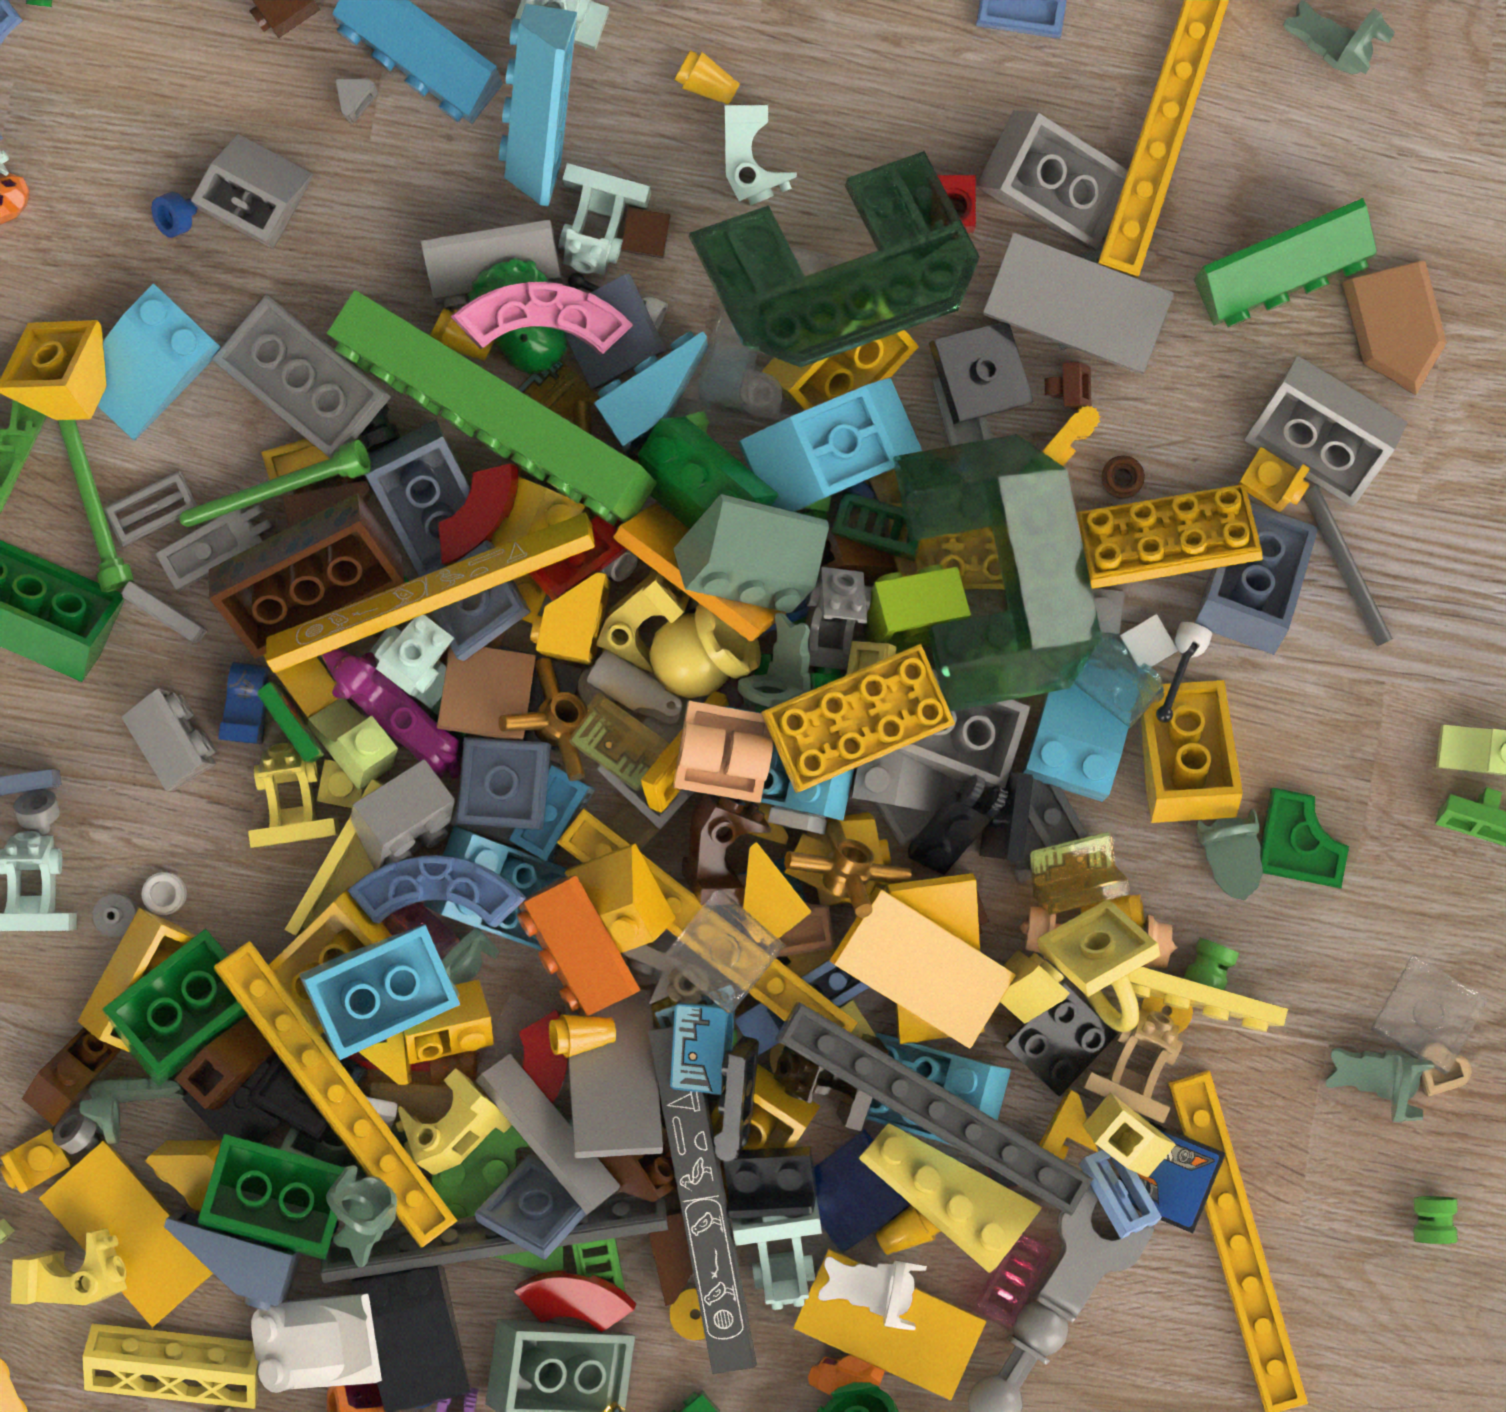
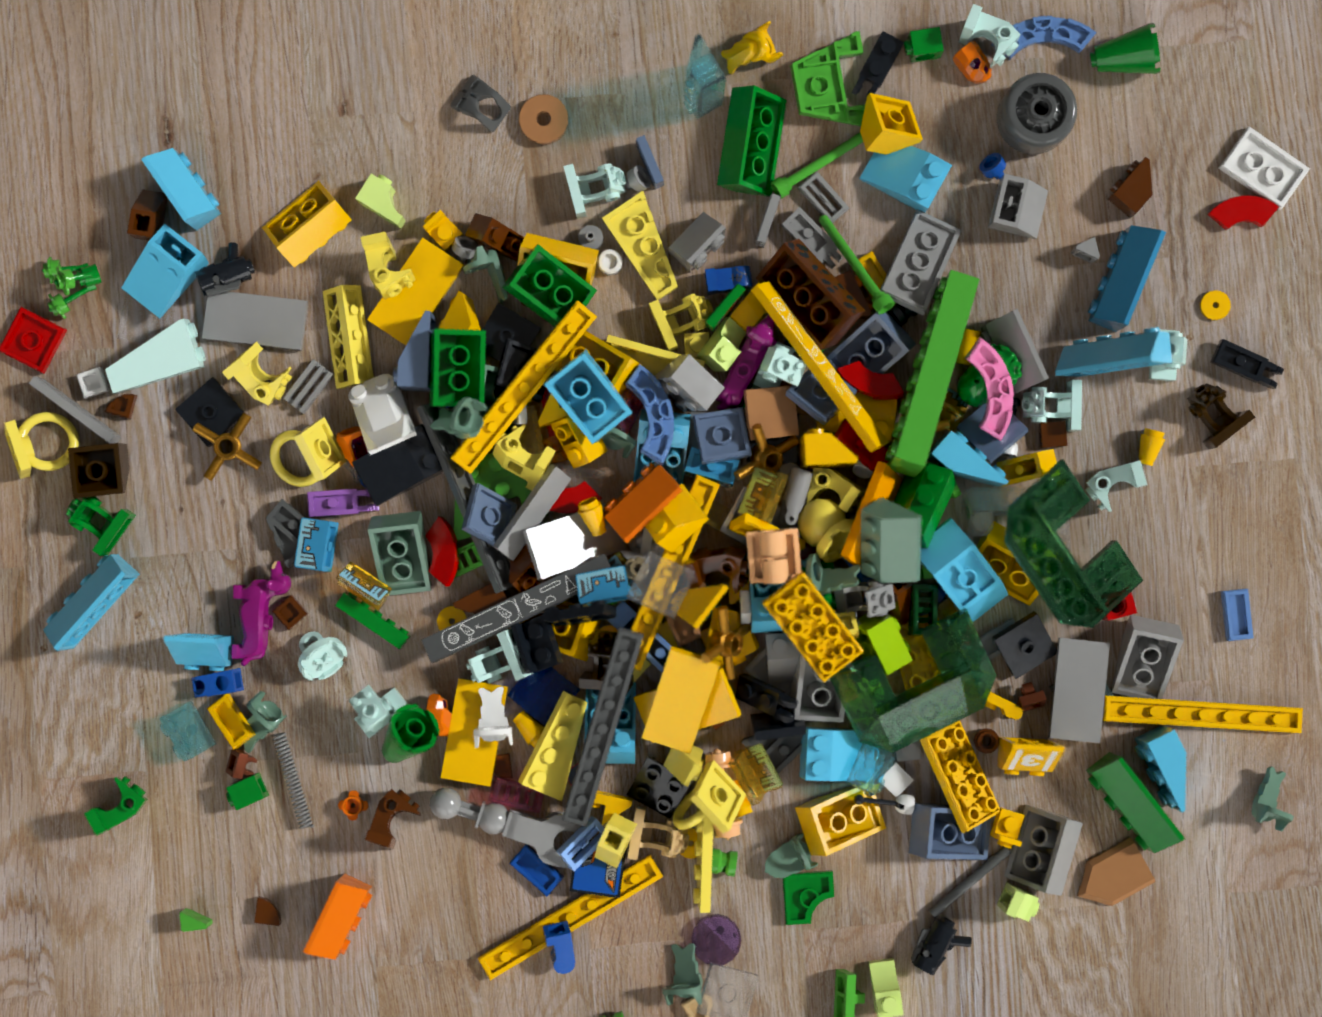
camera: 70 degrees right, 0 degrees up
(123, 147) = (1023, 127): none -> dark grey wheel
(139, 834) = (639, 239): none -> light yellow wing
(225, 1064) = (523, 321): reddish brown slope -> none
(687, 292) = (1027, 466): none -> yellow slope
(959, 1289) = (503, 766): none -> reddish brown tile
(1150, 1277) = (537, 872): none -> blue tile
(1163, 416) = (1028, 755): none -> yellow slope
(1237, 193) = (1166, 764): none -> medium azure slope
(1293, 1271) = (560, 938): none -> blue leg
(1336, 1009) = (716, 939): none -> clear purple tile
(1401, 495) = (1018, 902): none -> yellowish green arch
(1433, 651) = (934, 943): none -> black piece

